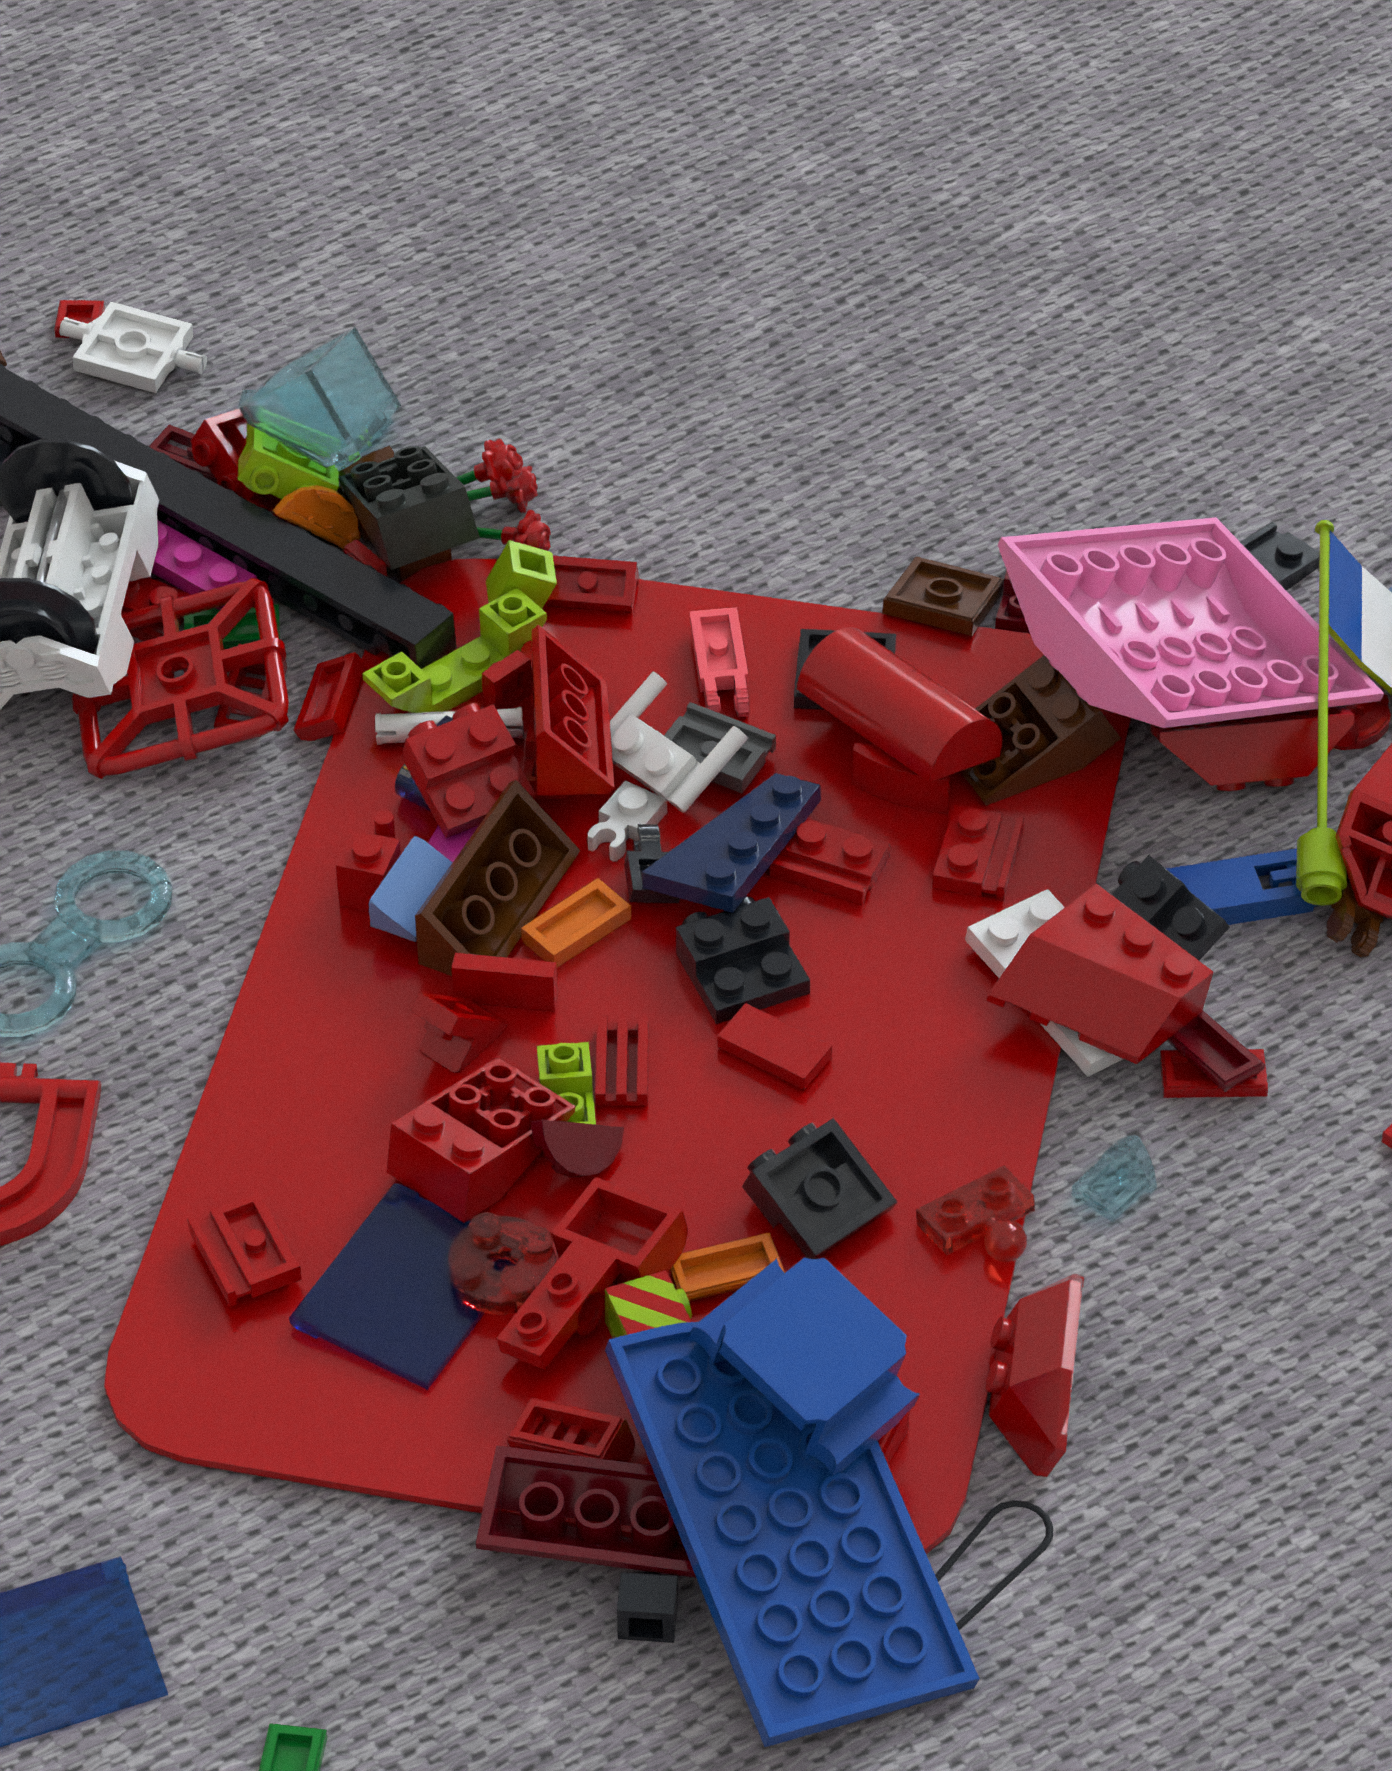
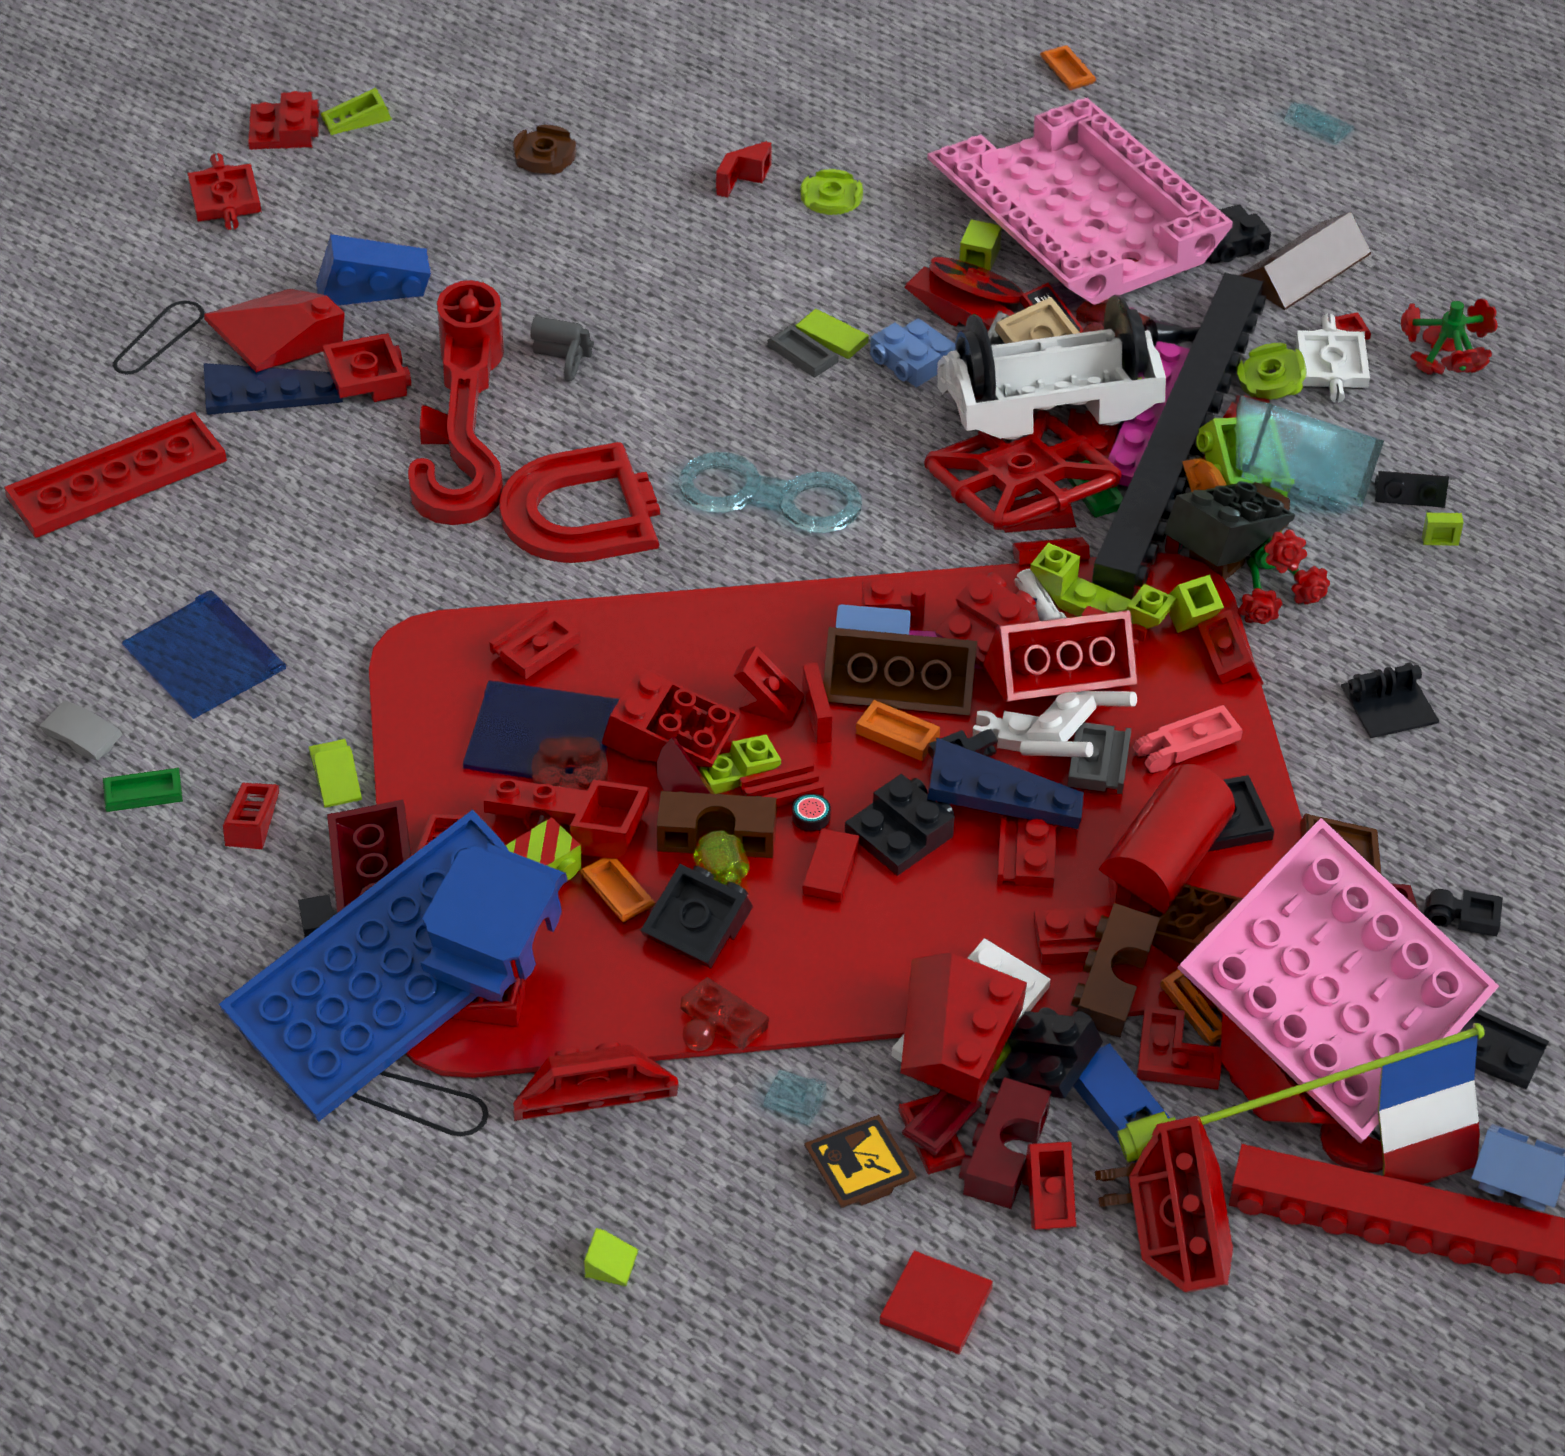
camera: 70 degrees right, 0 degrees up
(132, 378) = (1287, 379): none -> lime plate
(168, 201) = (1448, 334): none -> red plant
(371, 1539) = (335, 772): none -> lime slope
(400, 347) = (1411, 489): none -> black hinge
(426, 1673) = (254, 831): none -> red slope
(479, 348) = (1442, 529): none -> lime plate
(678, 1042) = (811, 812): none -> tile
(679, 1101) = (688, 816): none -> reddish brown arch
(723, 483) = (1390, 700): none -> black hinge
(732, 1142) = (722, 856): none -> clear neon green head
(1072, 512) = (1475, 911): none -> black plate
(1085, 849) = (1124, 940): none -> reddish brown arch
(1122, 784) = (1197, 1022): none -> orange tile
(1174, 835) = (1168, 1059): none -> red plate
(1243, 1143) = (860, 1162): none -> piece
(1291, 1027) = (1013, 1114): none -> dark red arch
(1300, 1426) = (609, 1258): none -> lime slope
(1341, 975) = (1051, 1185): none -> red slope

